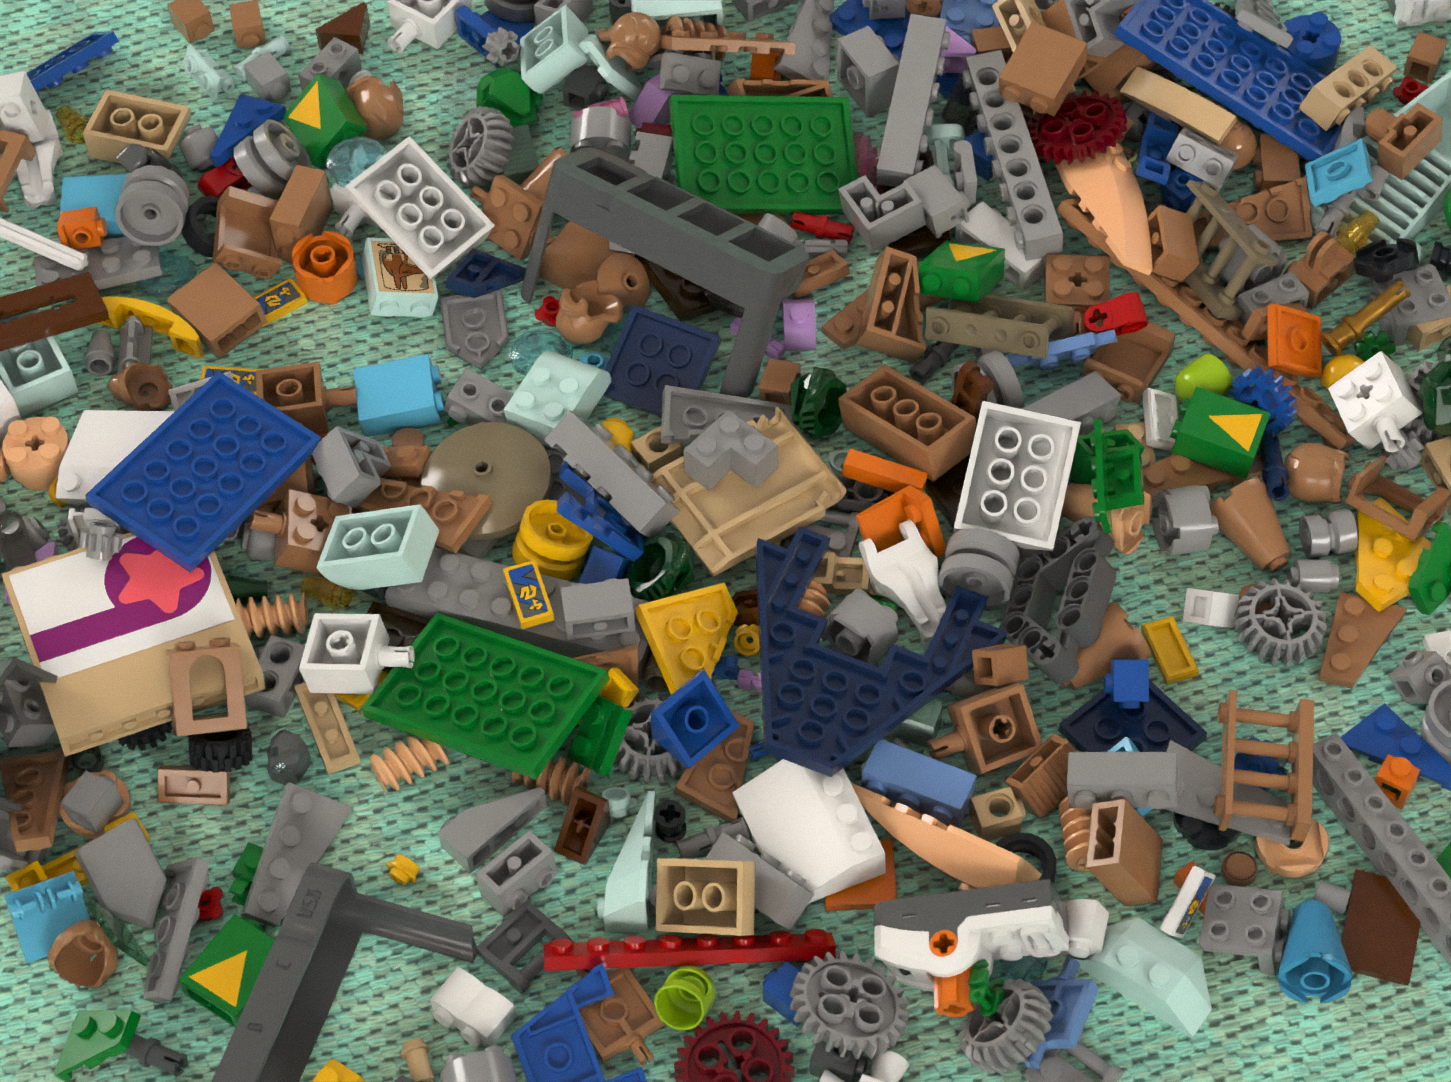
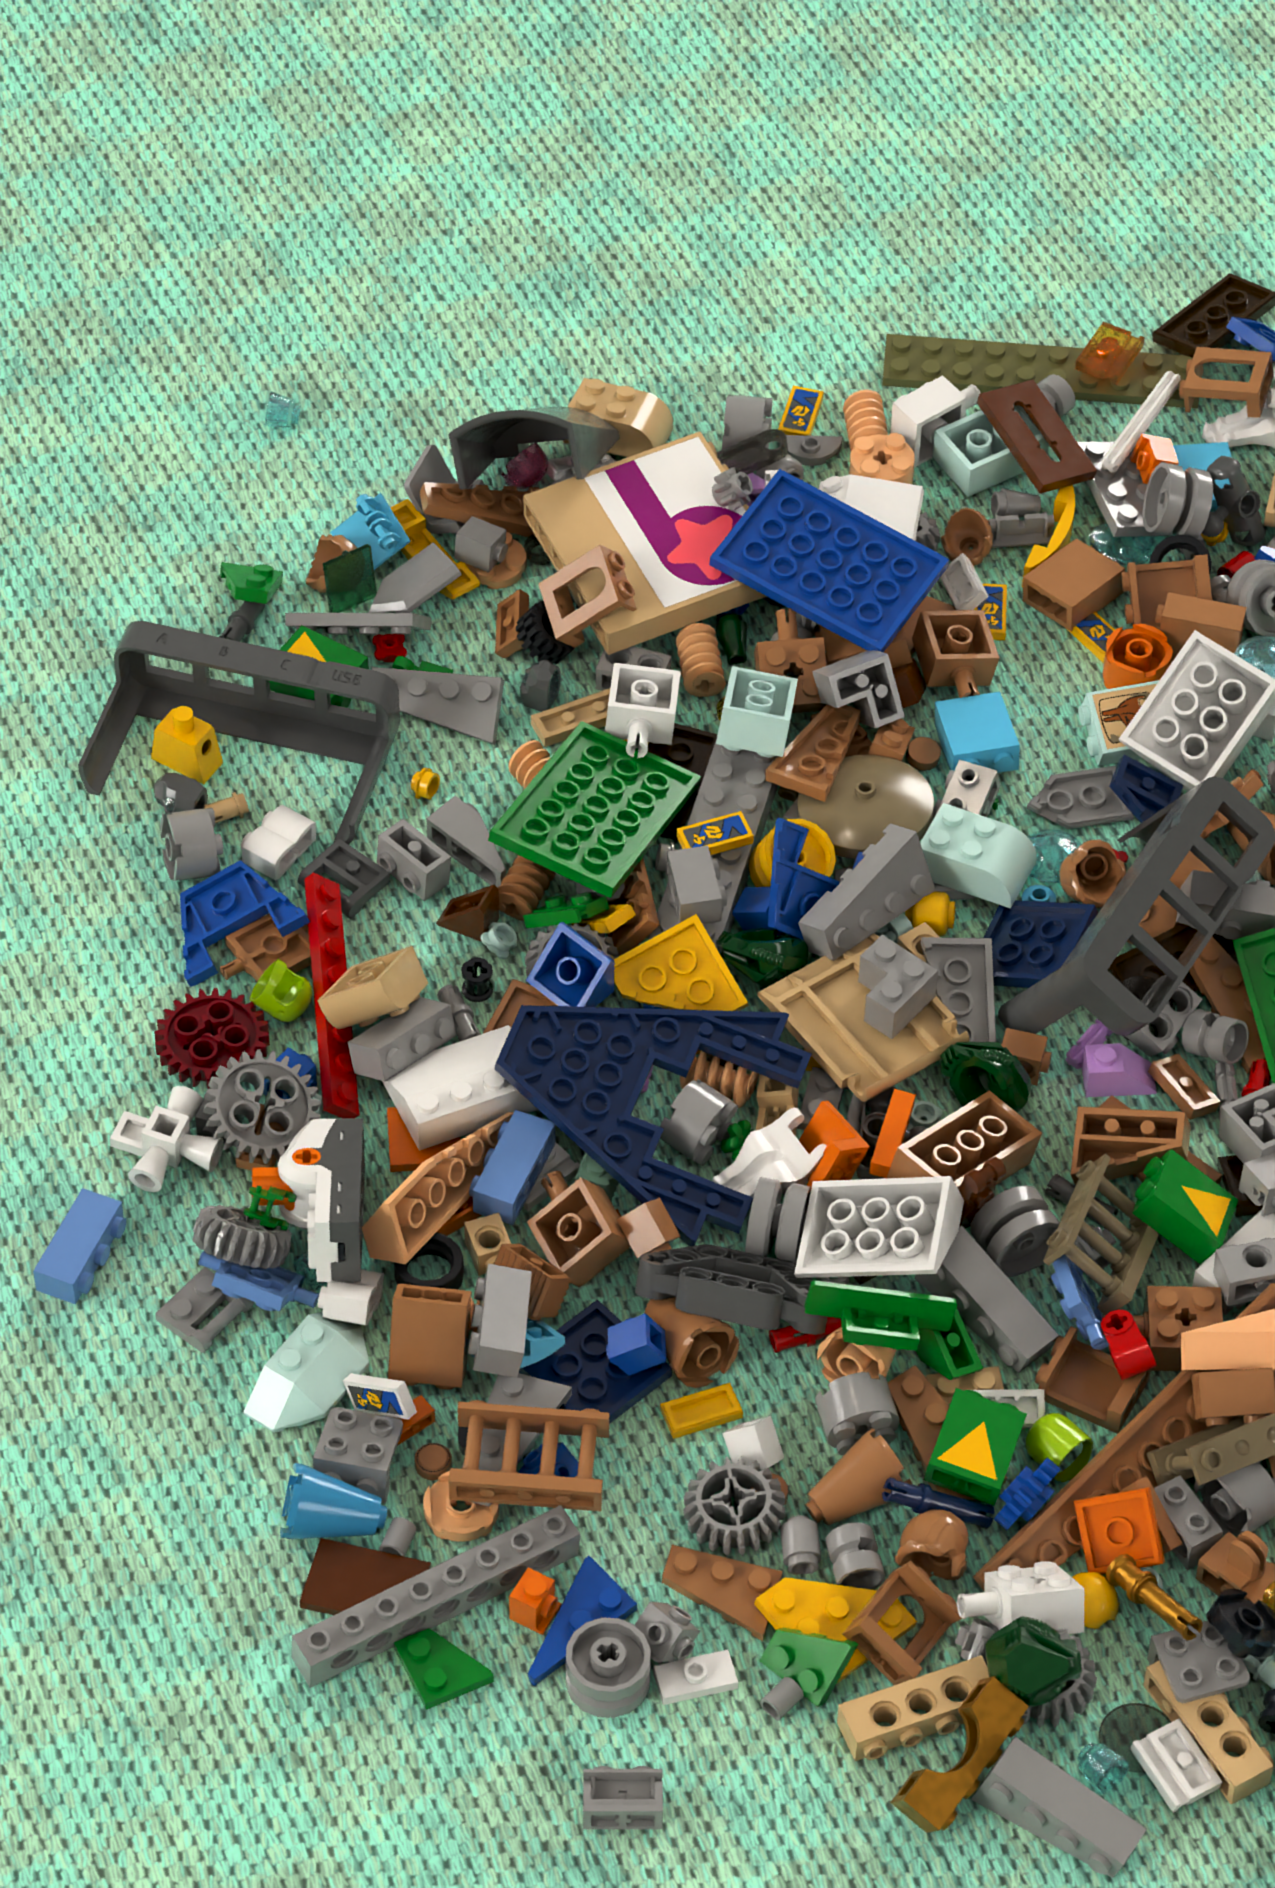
camera: 85 degrees right, 5 degrees down
(629, 884) = (436, 953): light aqua wedge -> none
(1374, 344) = (1132, 1628): green plant -> none

